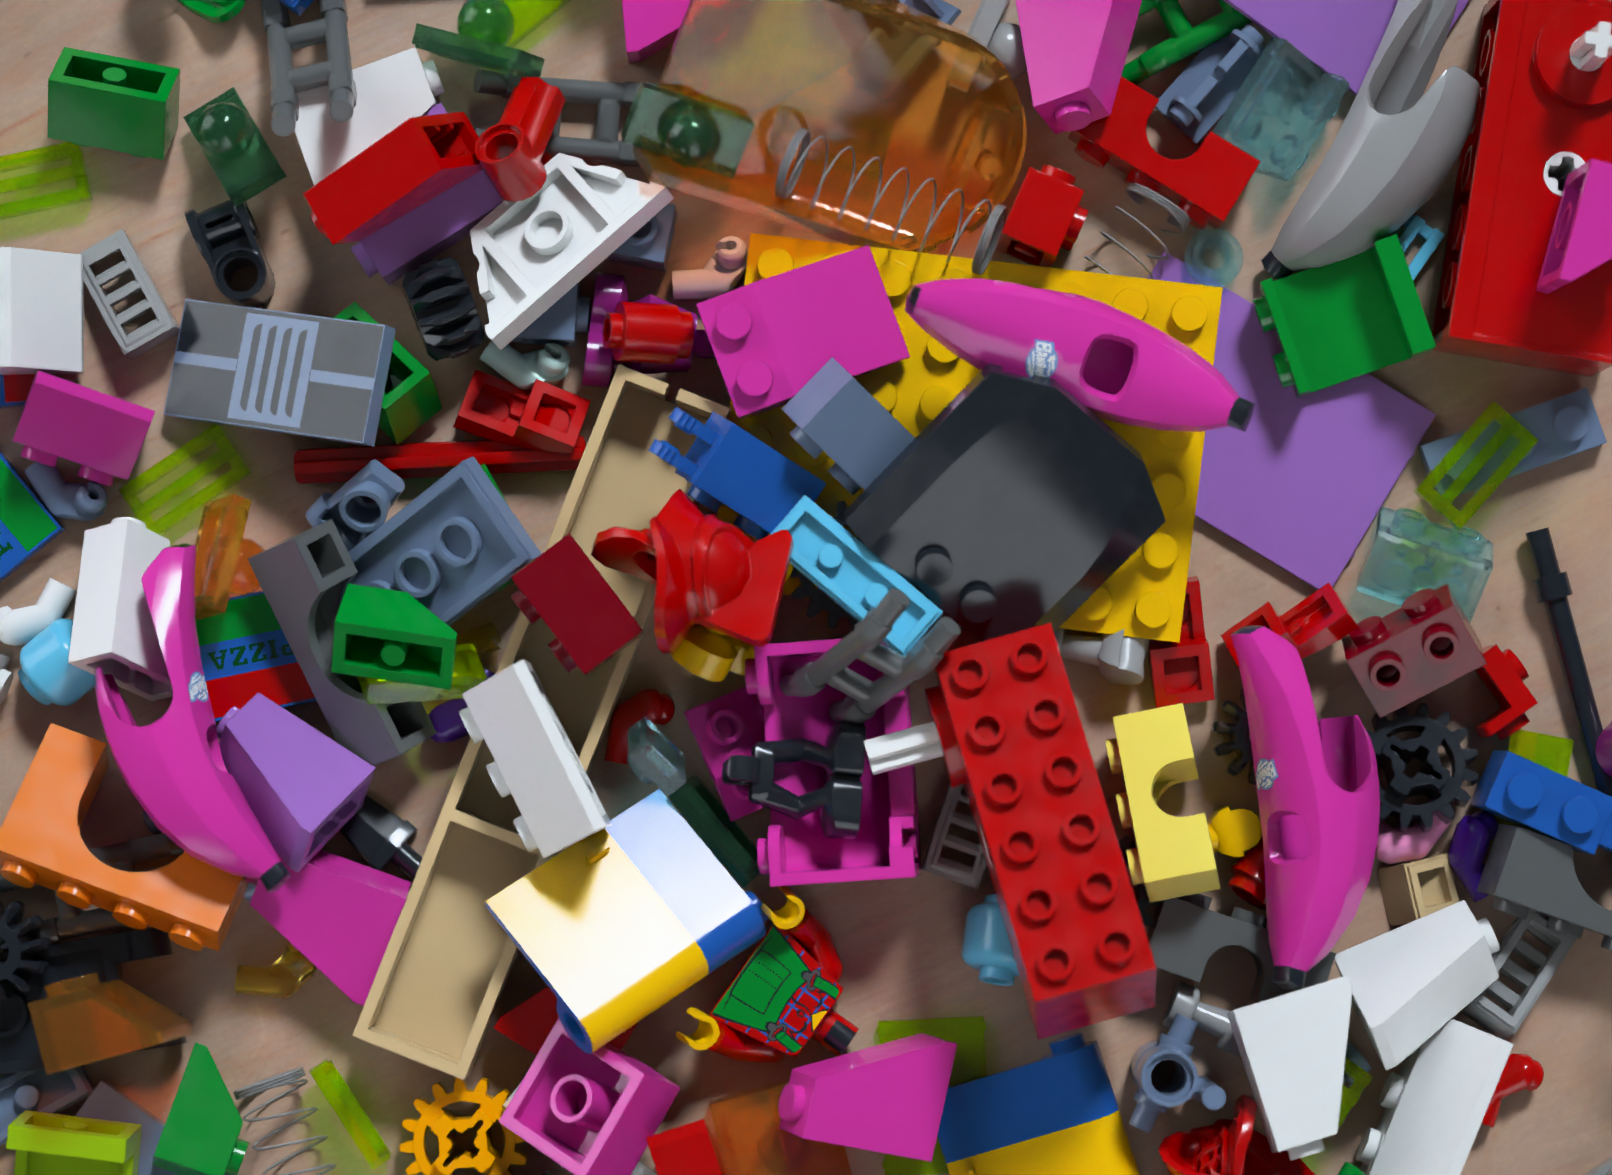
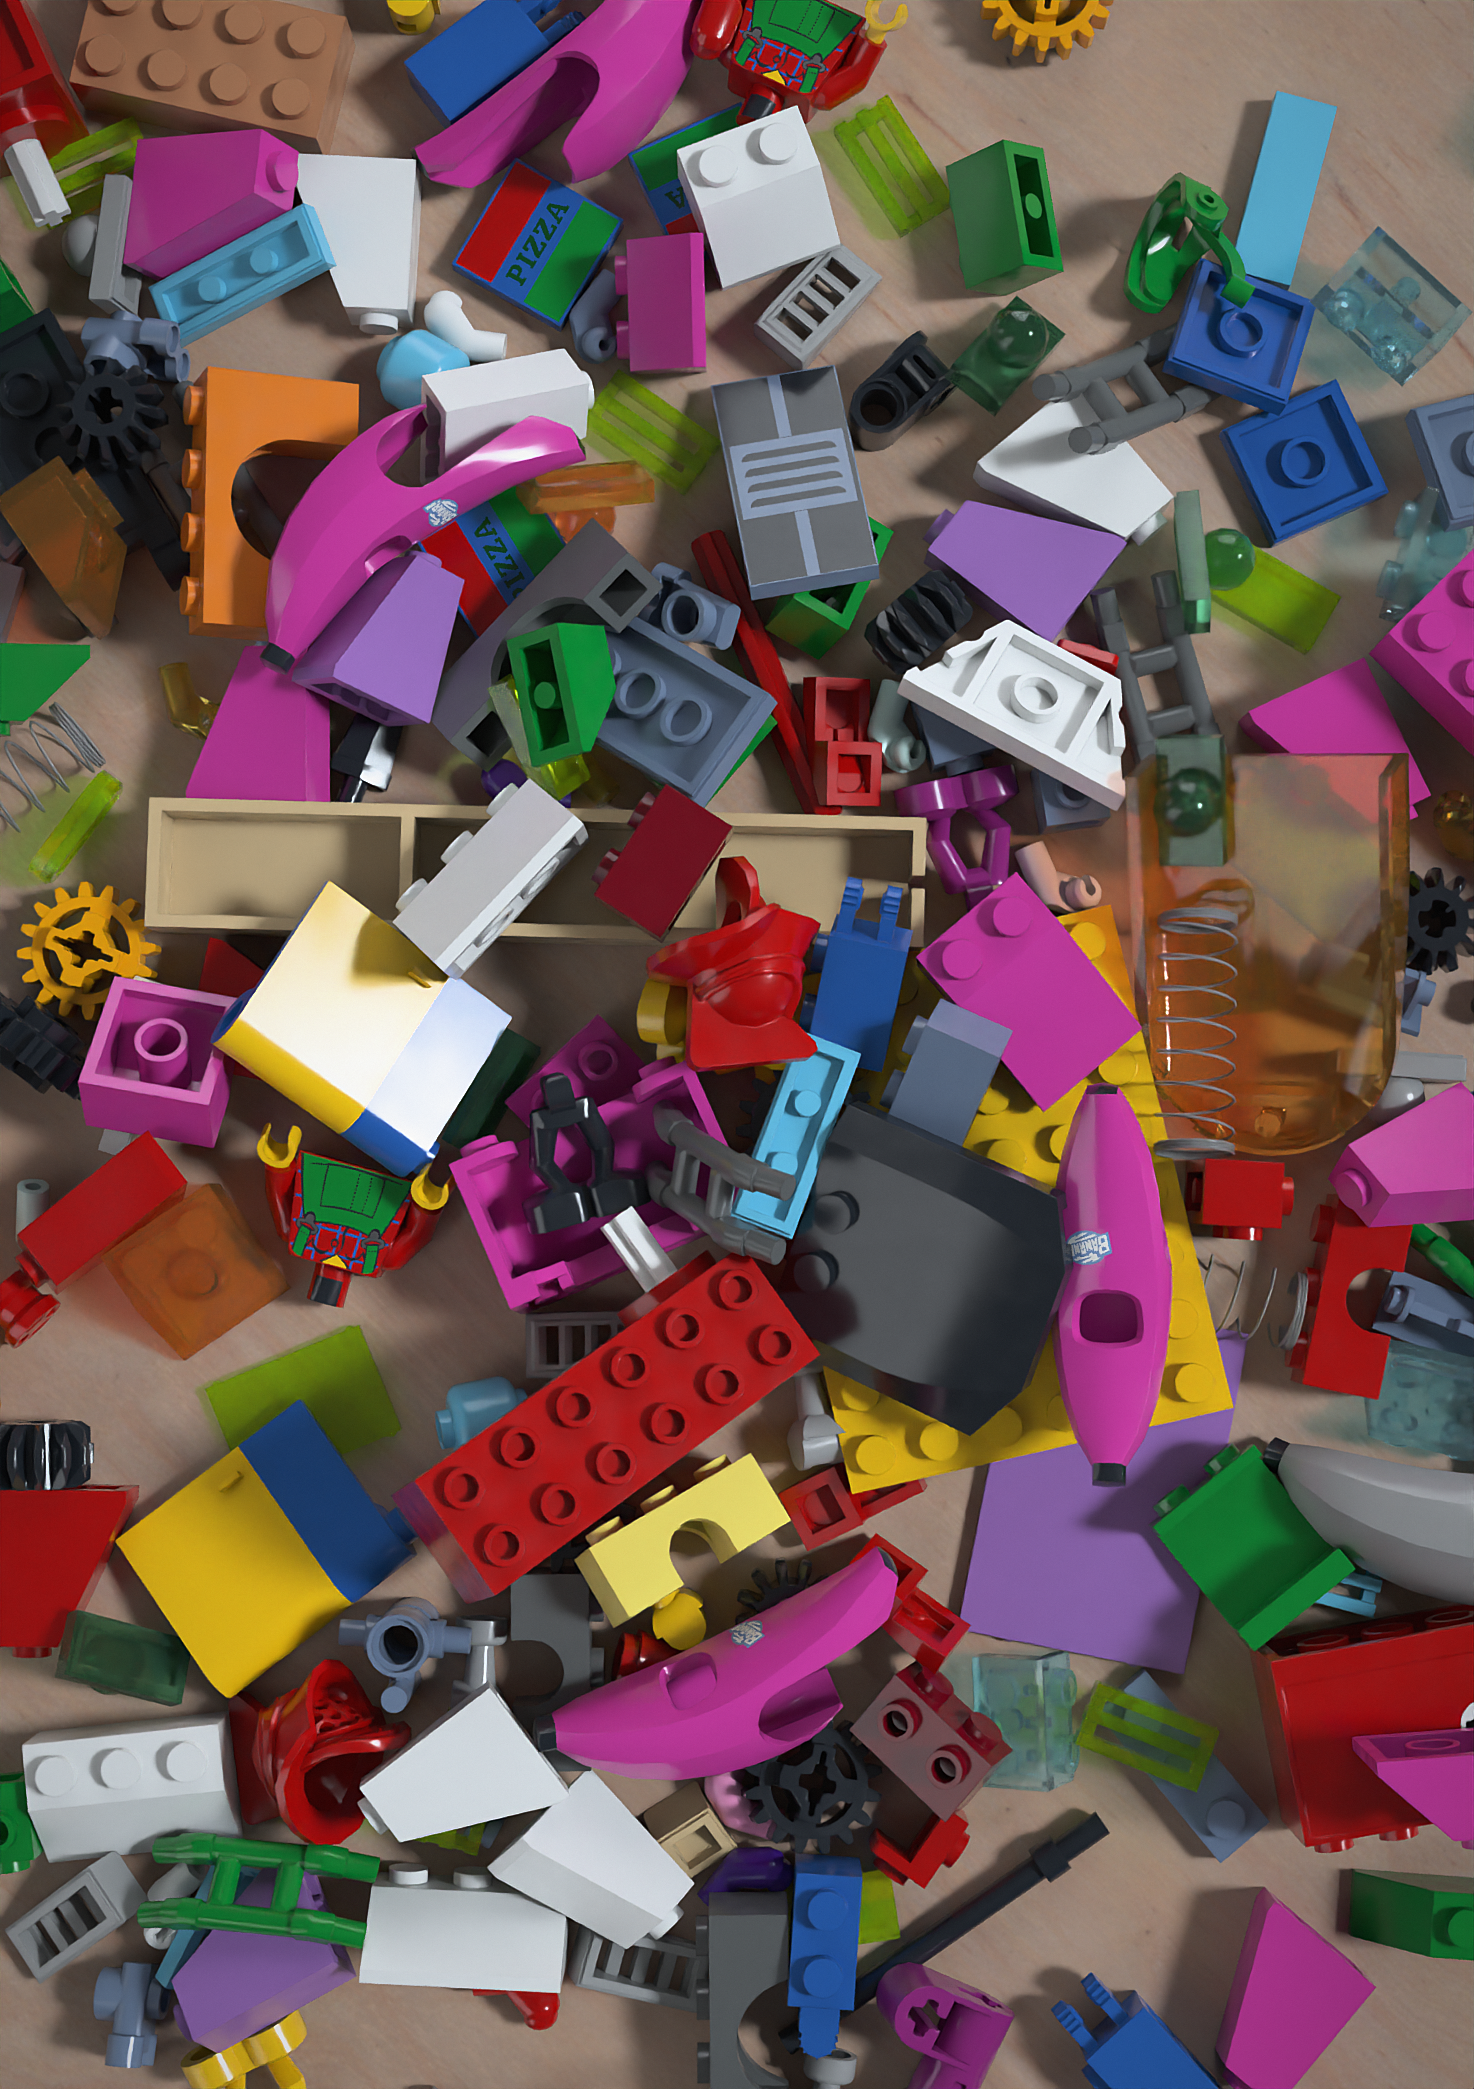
camera: 75 degrees right, 0 degrees up
(394, 176) = (1035, 522): red slope -> none
(515, 145) = (1109, 632): red piece -> none
(648, 333) = (969, 836): red brick -> none
(649, 703) = (576, 966): red arm -> none
(655, 757) = (542, 1001): clear light blue plate -> none
(873, 1097) = (274, 1347): dark pink slope -> none
(1222, 242) = (1279, 1389): clear light blue plate -> none

